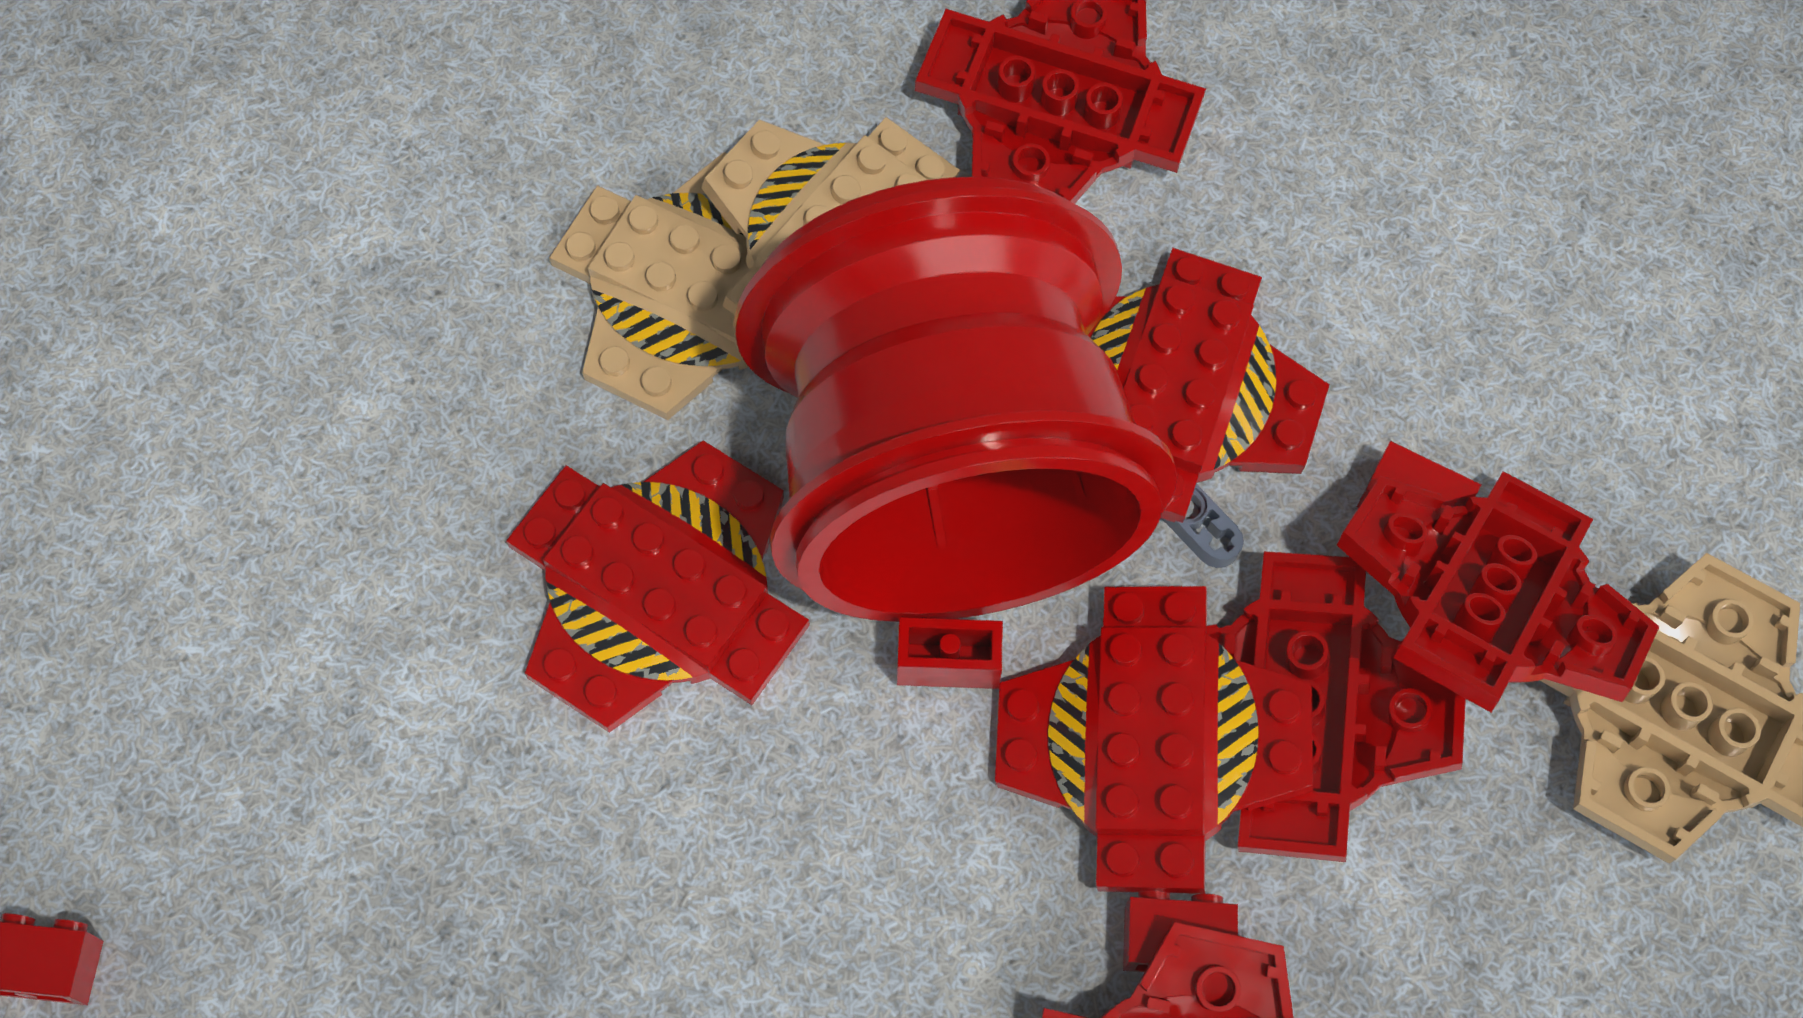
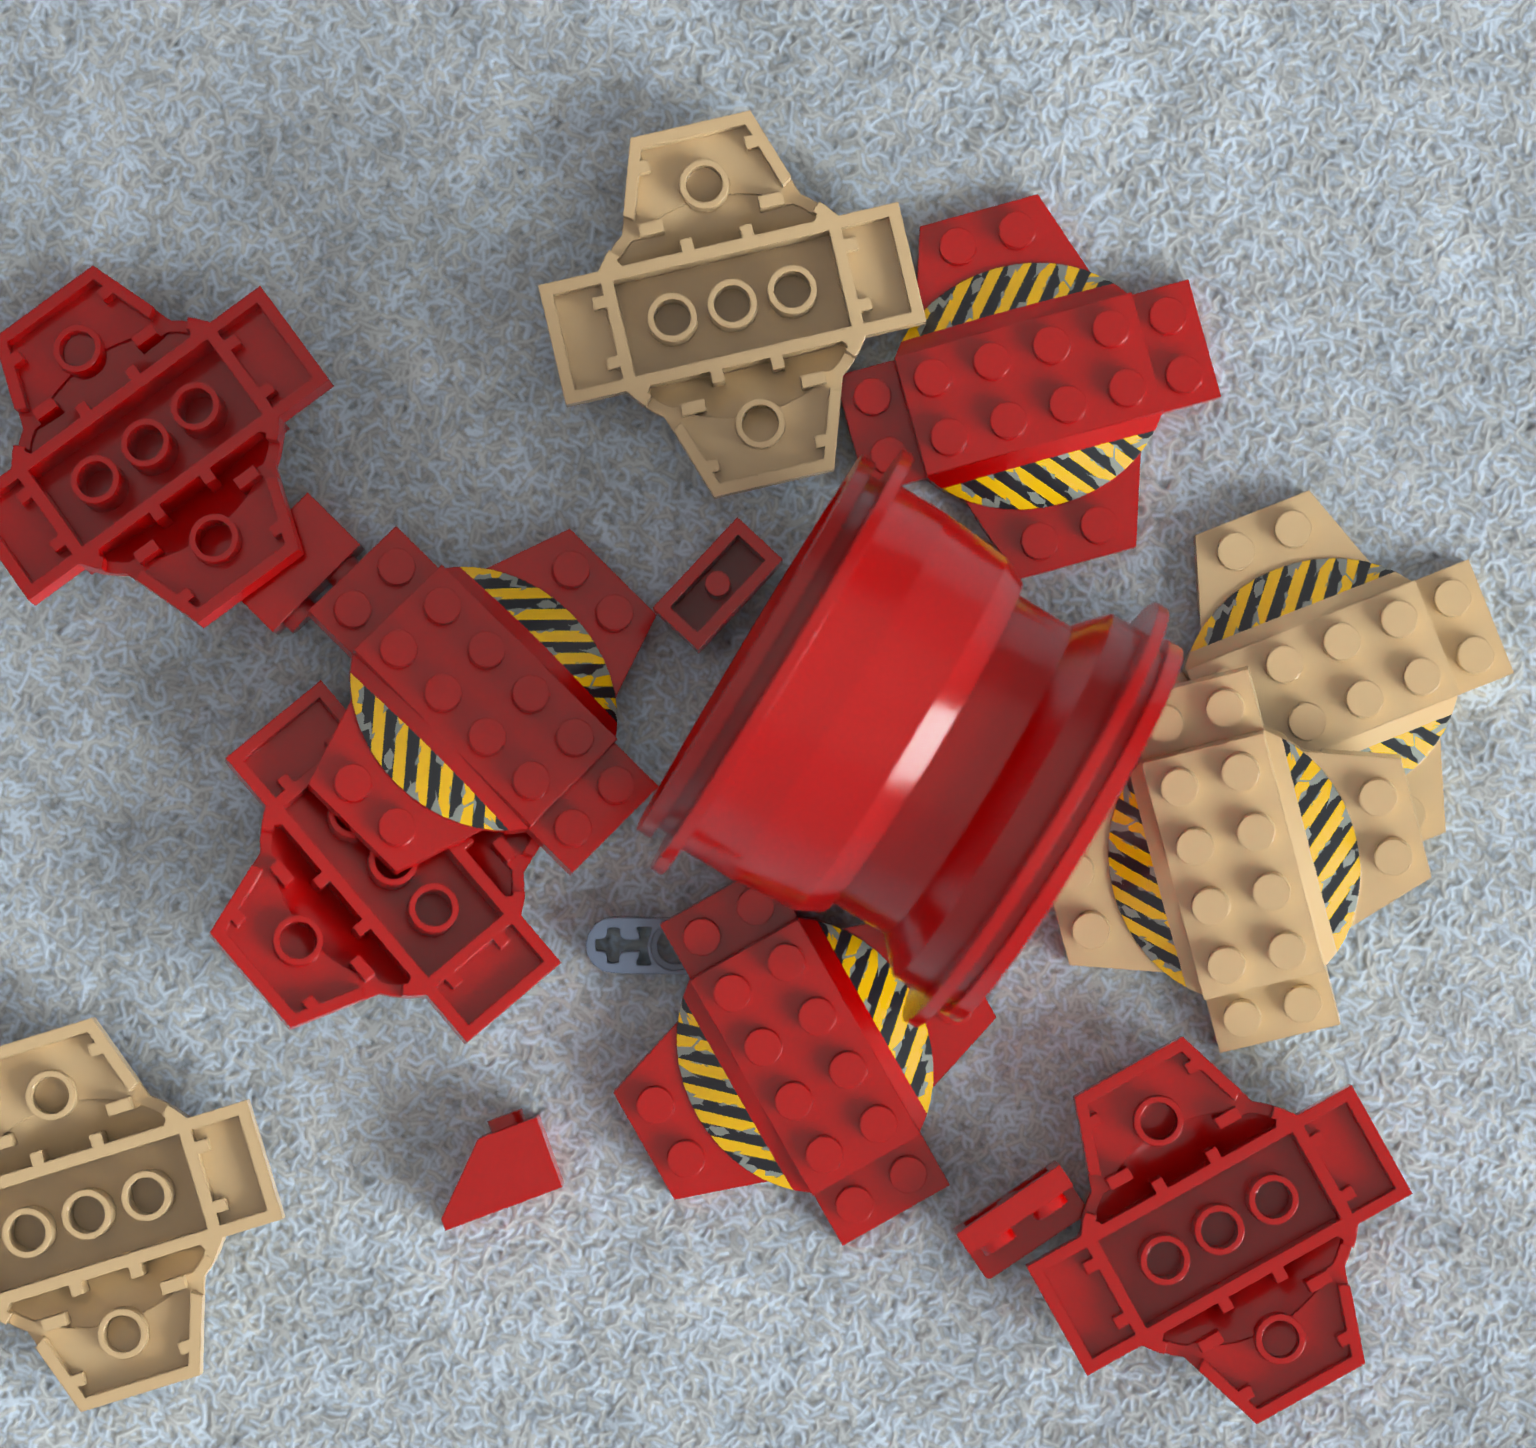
camera: 130 degrees right, 20 degrees up
(760, 798) = (732, 304): none -> tan plate
(1153, 198) = (1021, 1220): none -> red bracket
(1497, 591) = (330, 1121): red plate -> none

